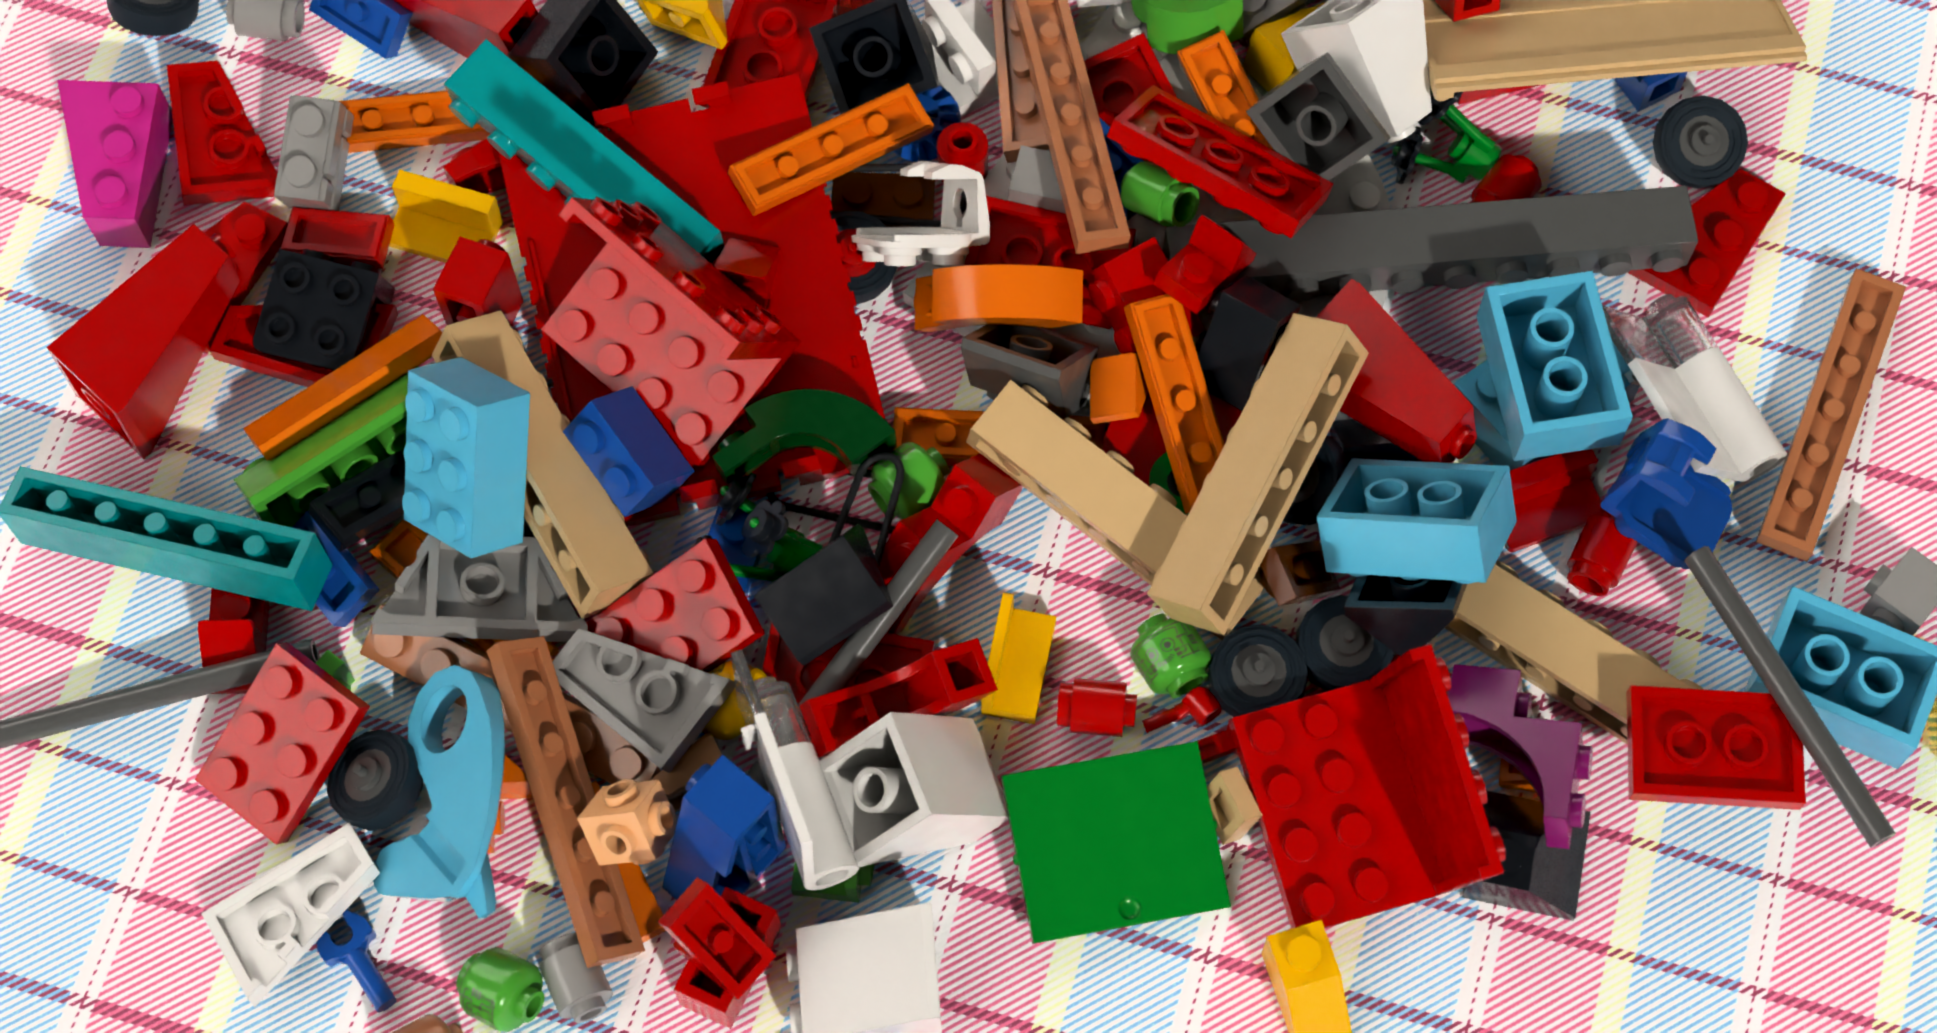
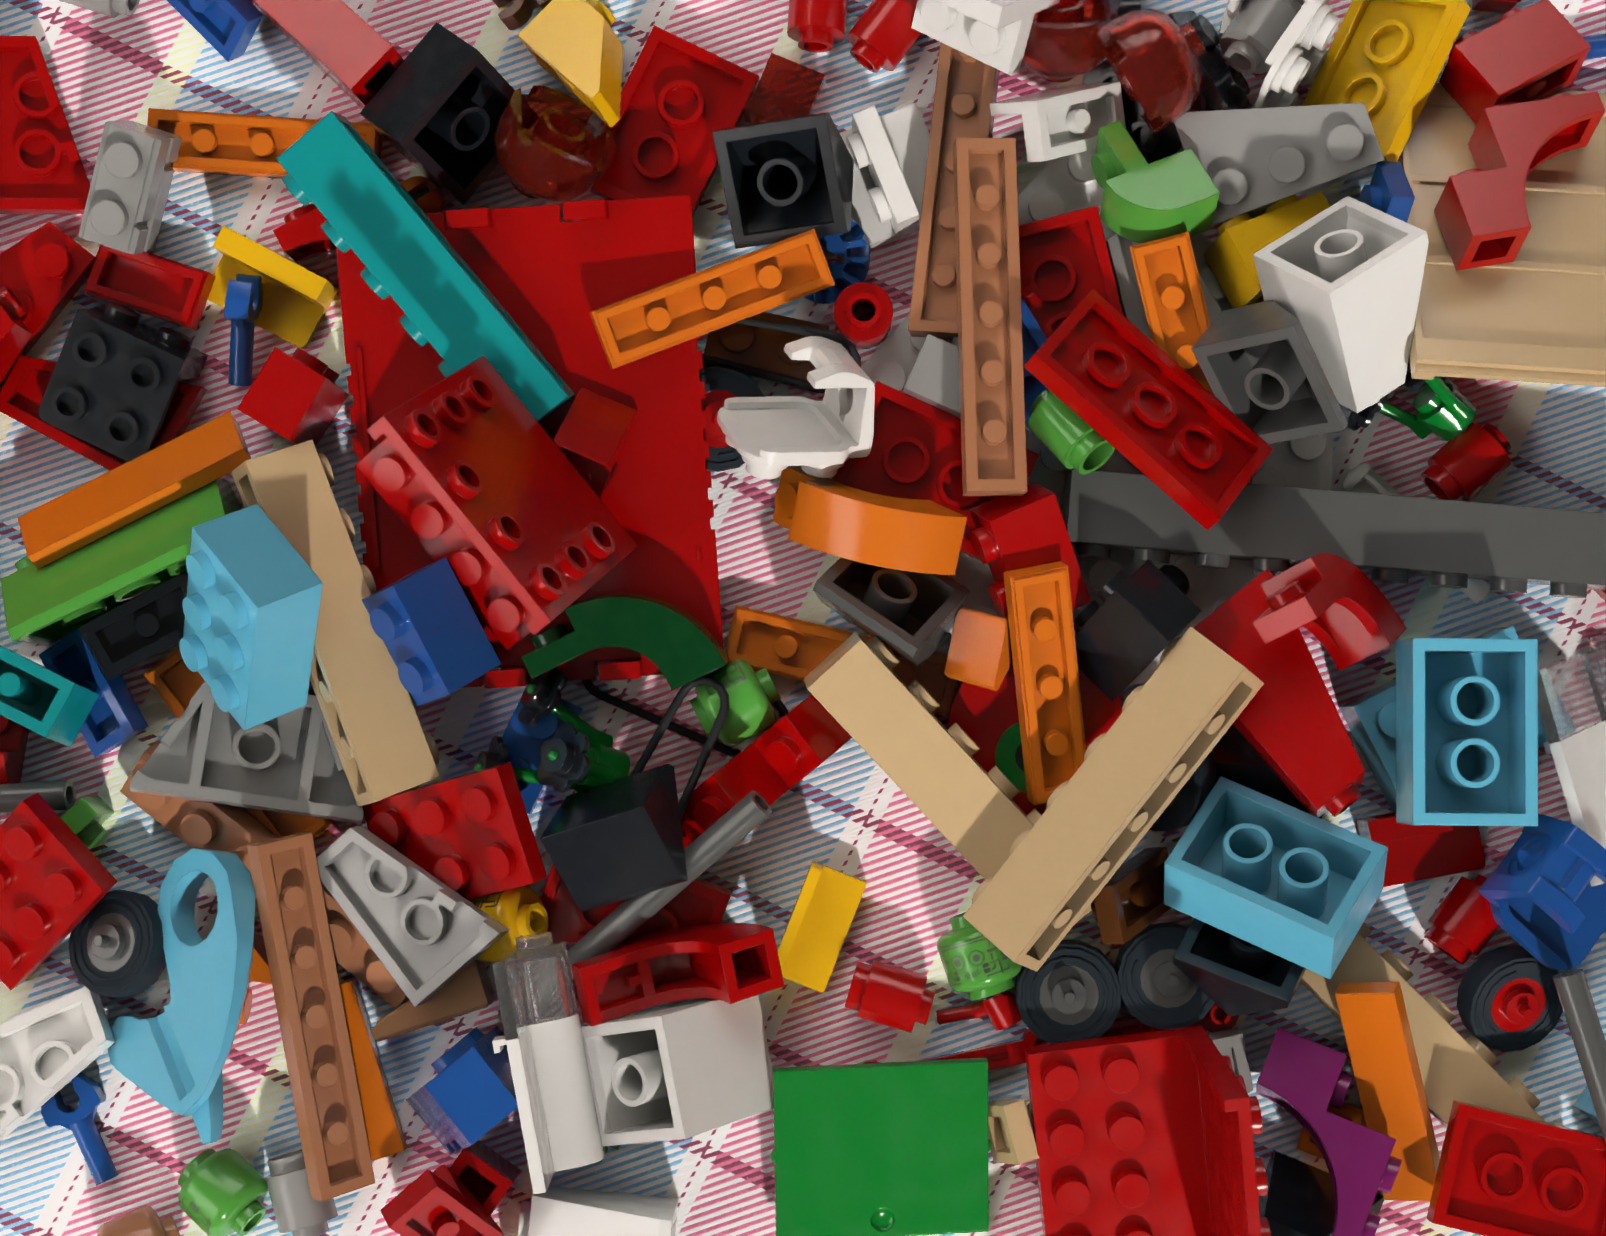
camera: 15 degrees right, 20 degrees up
(424, 238) = (242, 308): none -> blue bar
(628, 822) = (372, 1064): light nougat brick -> none
(669, 63) = (551, 145): none -> clear red cylinder
(1204, 265) = (1104, 540): red slope -> none
(1414, 295) = (1333, 604): none -> red arch
(1567, 689) = (1390, 1081): none -> orange tile
(1658, 610) = (1509, 999): none -> black wheel

